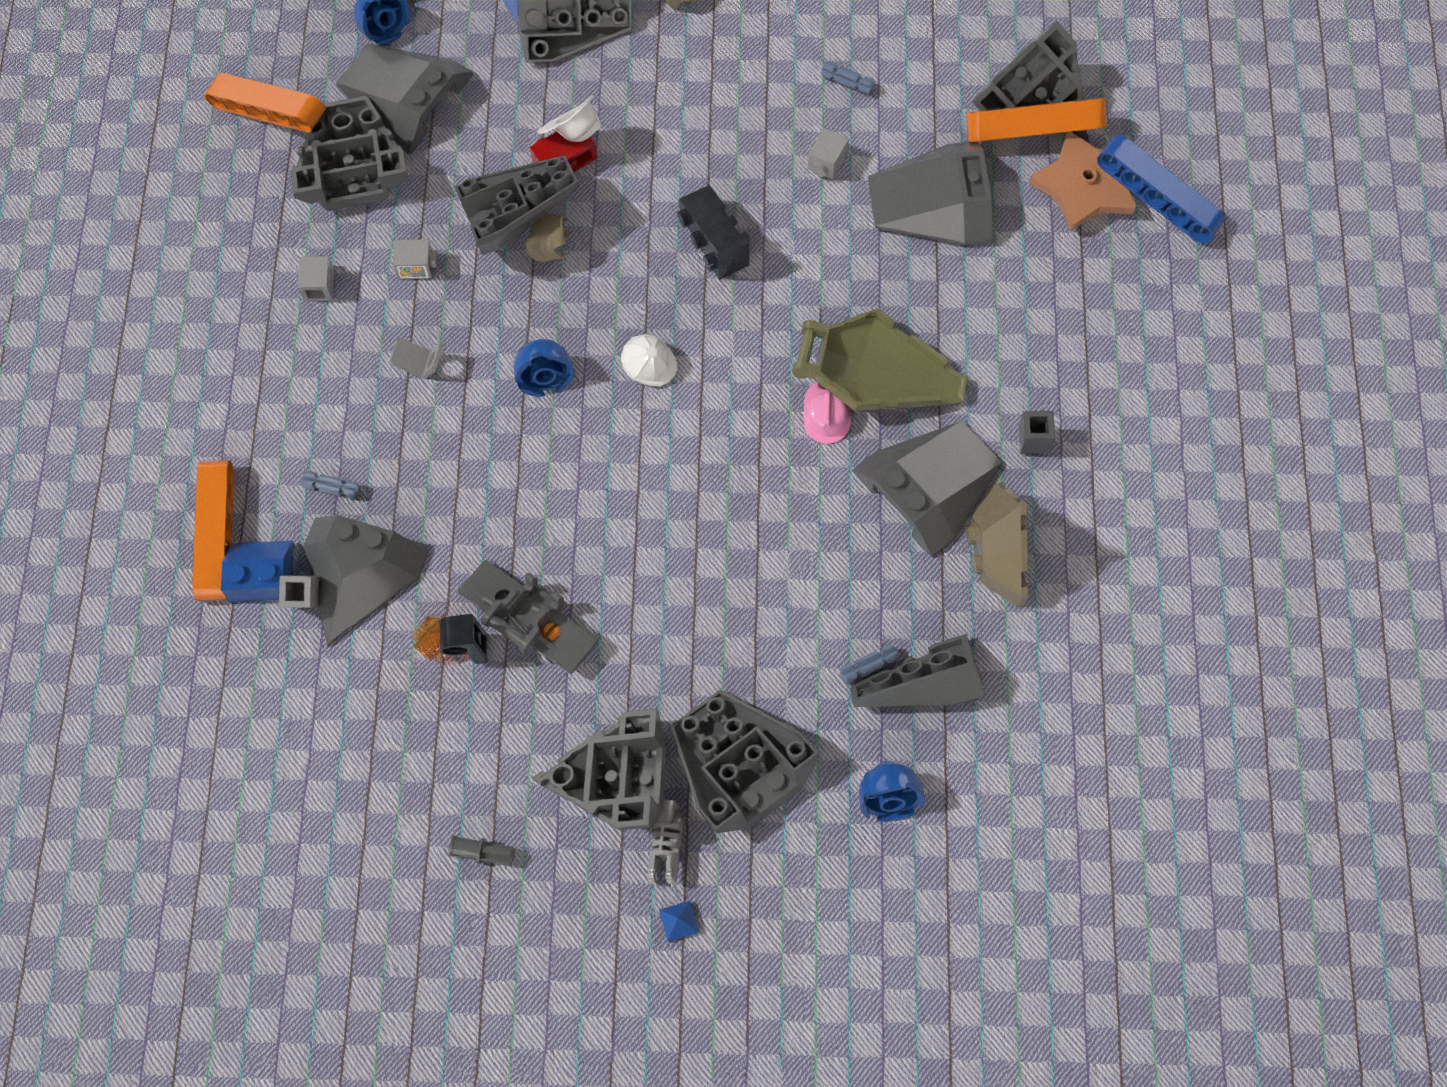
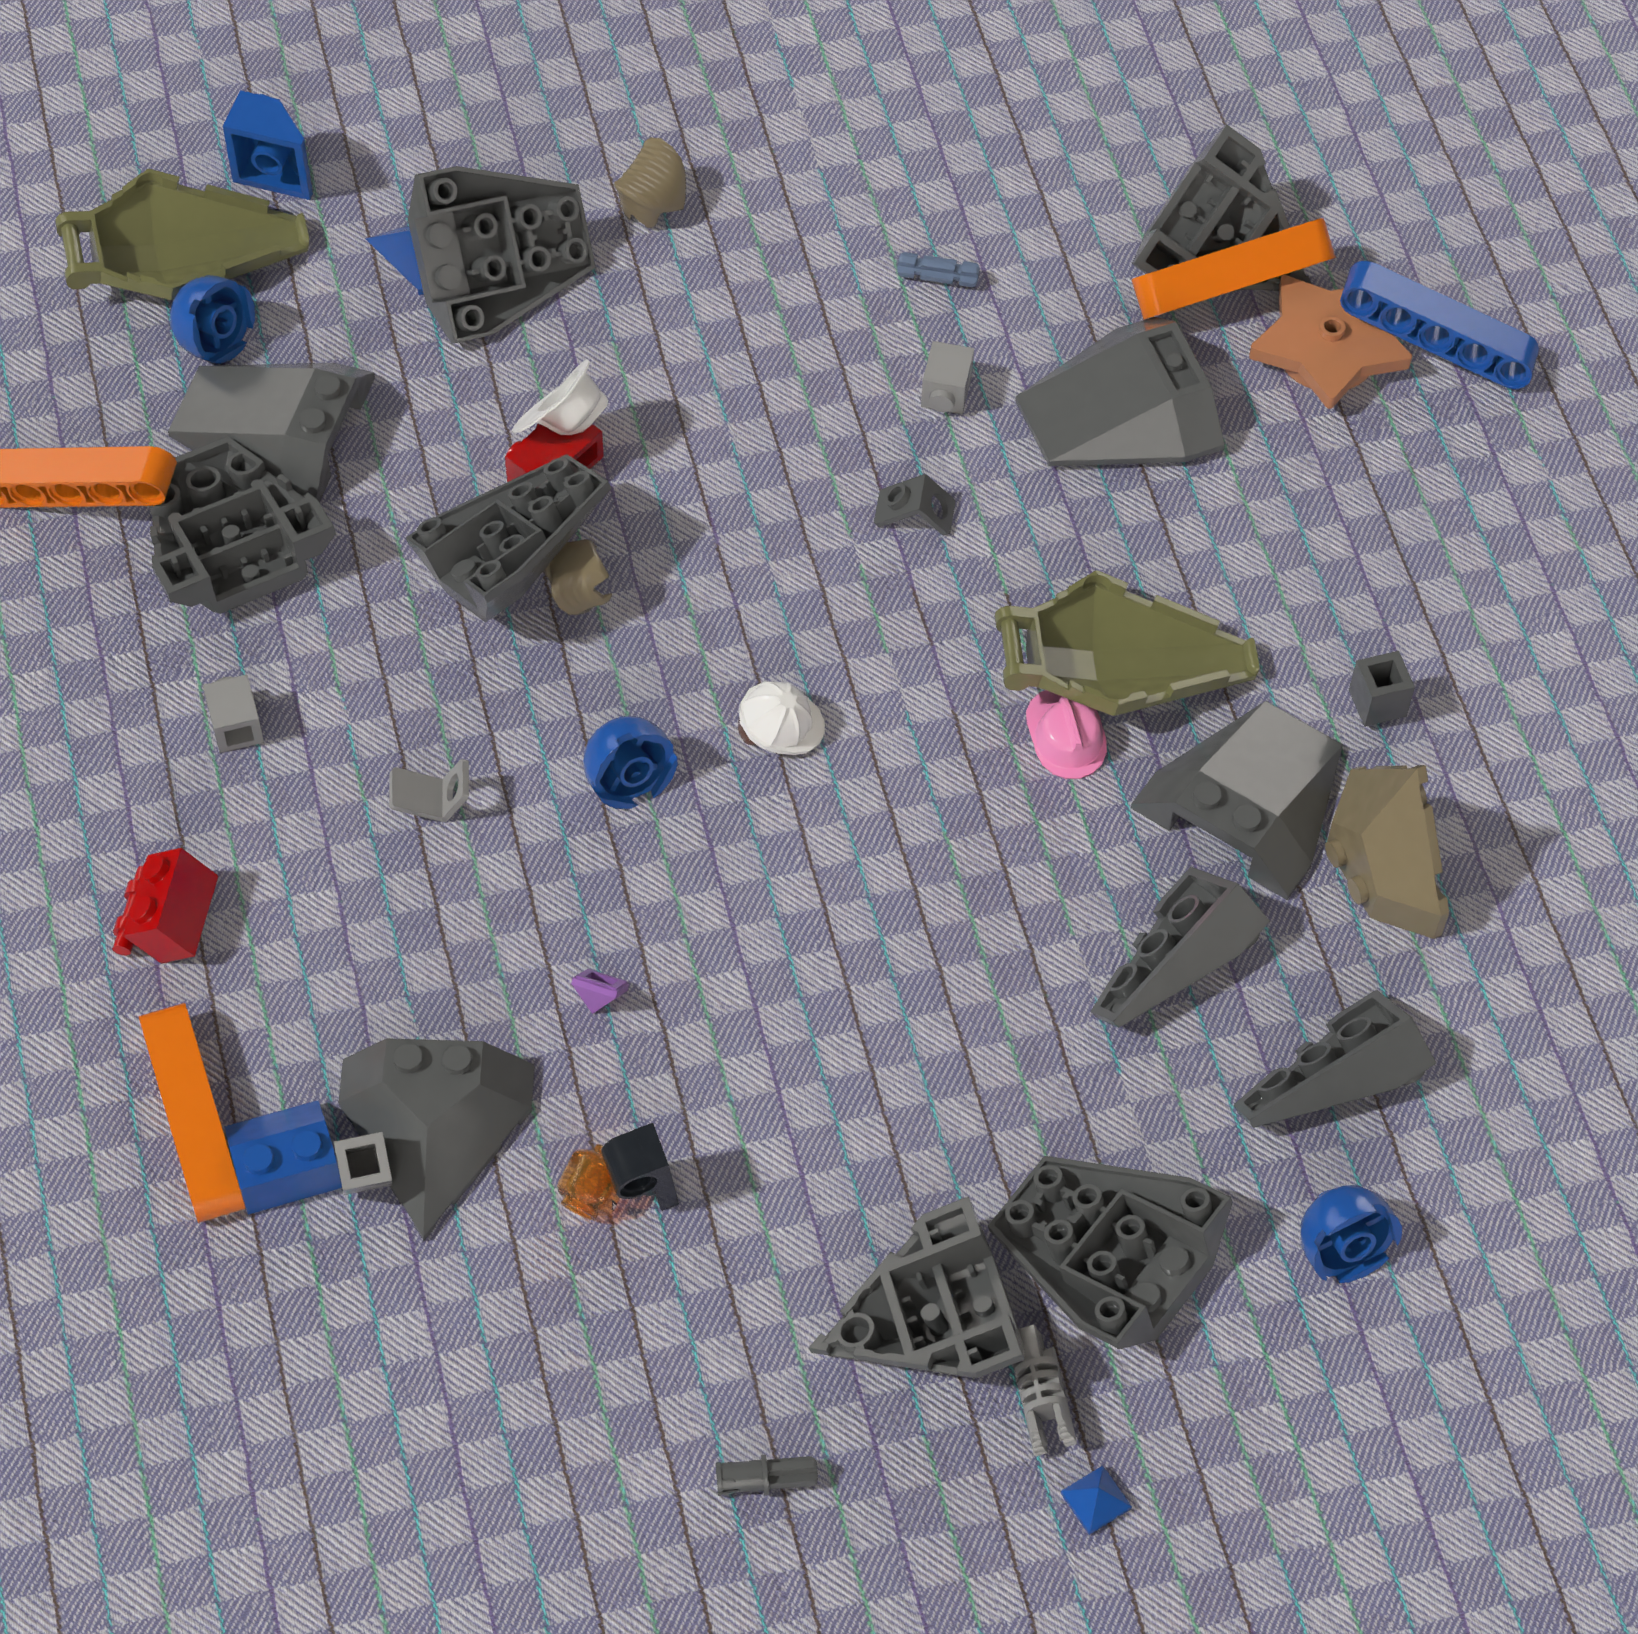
camera: 20 degrees left, 10 degrees down
(237, 395) = (166, 907): none -> red brick
(331, 485) = (353, 1005): sand blue axle -> none
(414, 259) = (377, 653): light grey brick -> none
(480, 510) = (598, 988): none -> medium lavender slope
(534, 608) = (729, 1107): dark grey piece -> none
(714, 232) = (820, 518): black wedge -> none
(777, 232) = (912, 499): none -> dark grey bracket
(862, 569) = (1197, 930): none -> dark grey wedge
(869, 664) = (1250, 1066): sand blue axle -> none

